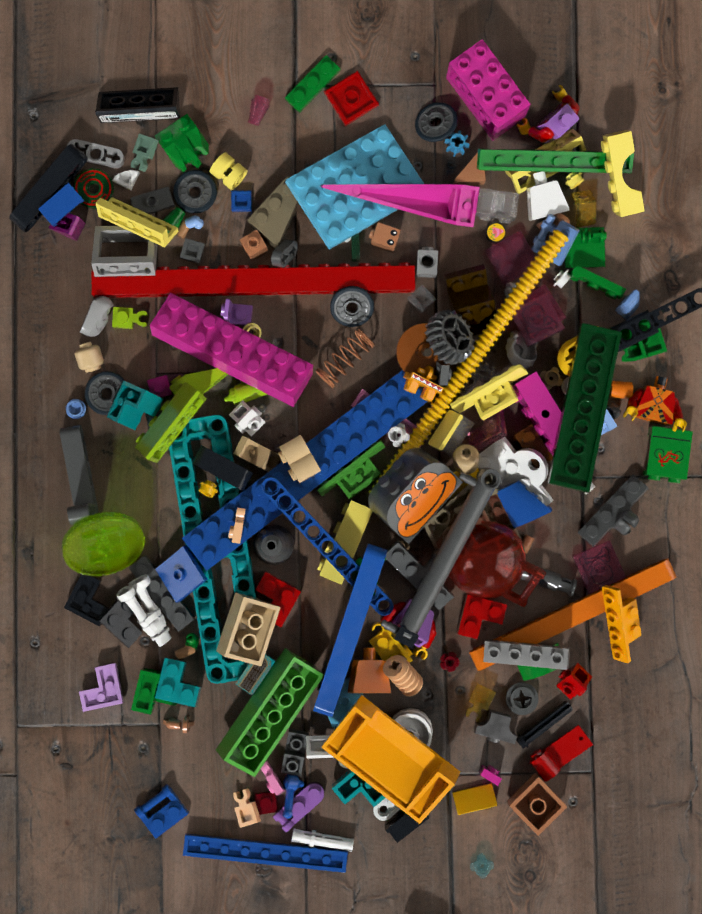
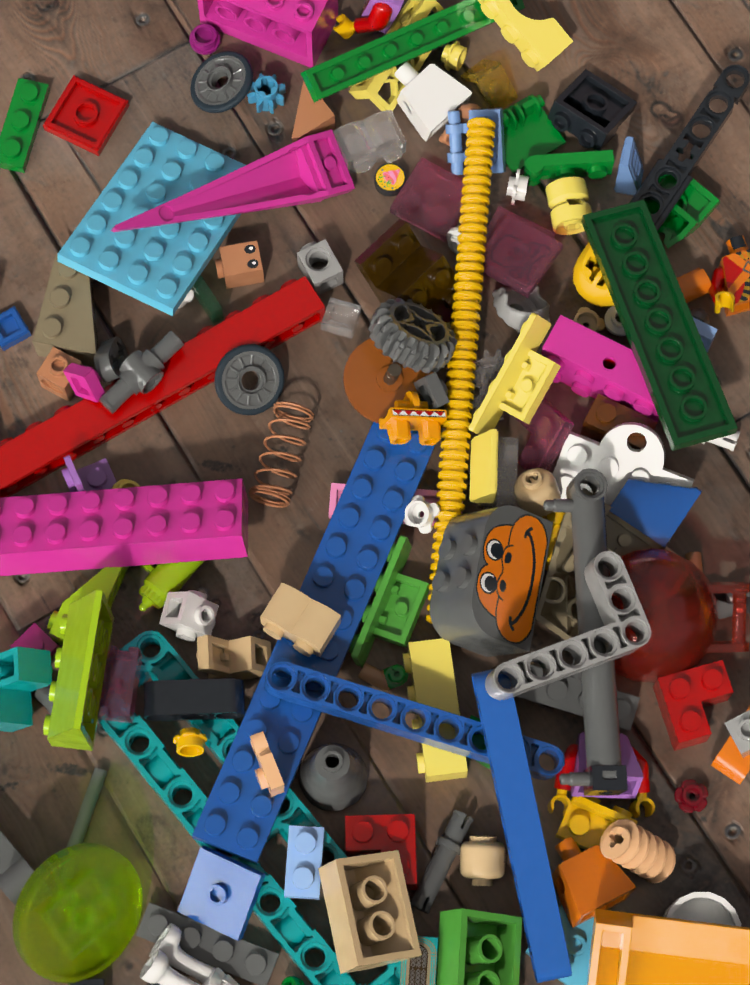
camera: 30 degrees left, 15 degrees down
(136, 492) = (87, 807): none -> dark grey bar
(189, 438) = (120, 685): none -> clear pink hinge
(231, 583) = (303, 861): none -> light blue plate
(262, 260) = (84, 381): none -> dark pink plate
(294, 272) = (141, 371): none -> dark grey pin
(310, 615) = (441, 861): none -> dark grey pin
(323, 632) = (482, 859): none -> tan head
(330, 510) = (384, 679): none -> arm
(432, 564) = (582, 646): none -> light grey beam
(442, 90) = (204, 39): none -> magenta plate
(584, 299) = (569, 203): none -> light yellow wheel
(630, 257) = (591, 110): none -> black plate

